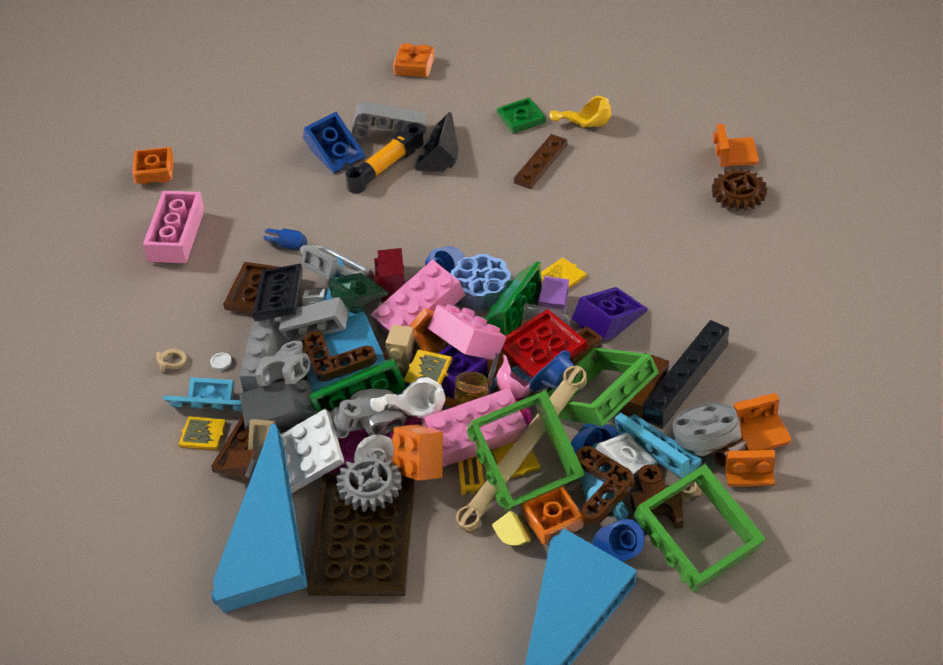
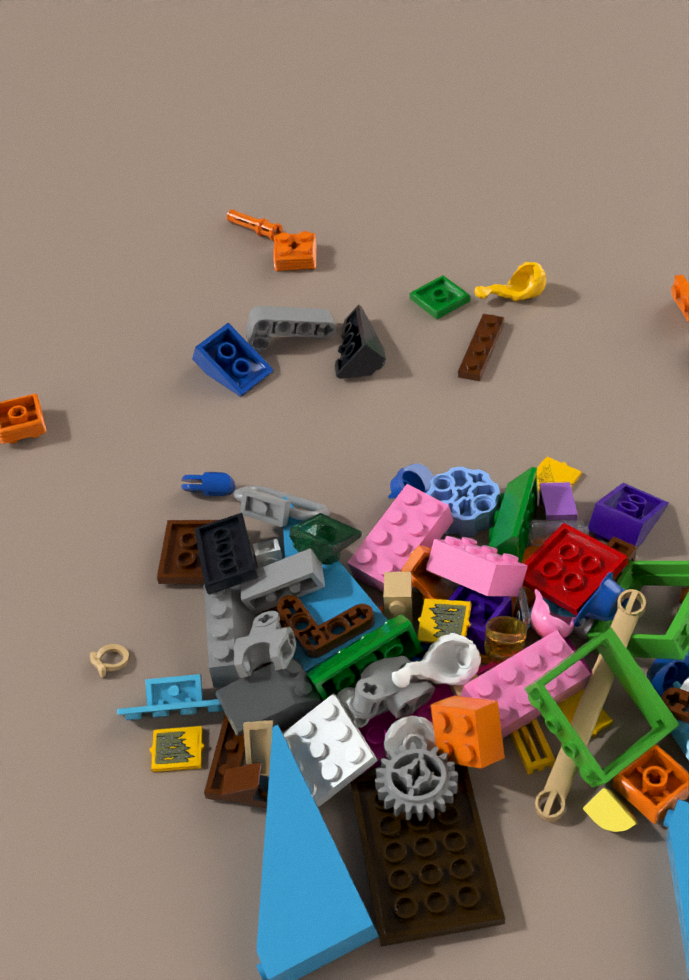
camera: 10 degrees left, 0 degrees up
(174, 227) = (68, 490): bright pink brick -> none
(221, 361) = (173, 651): white piece -> none
(389, 270) = (353, 506): dark red wedge -> none
(393, 35) = (260, 226): none -> orange pin
(401, 145) = (313, 352): black piece -> none

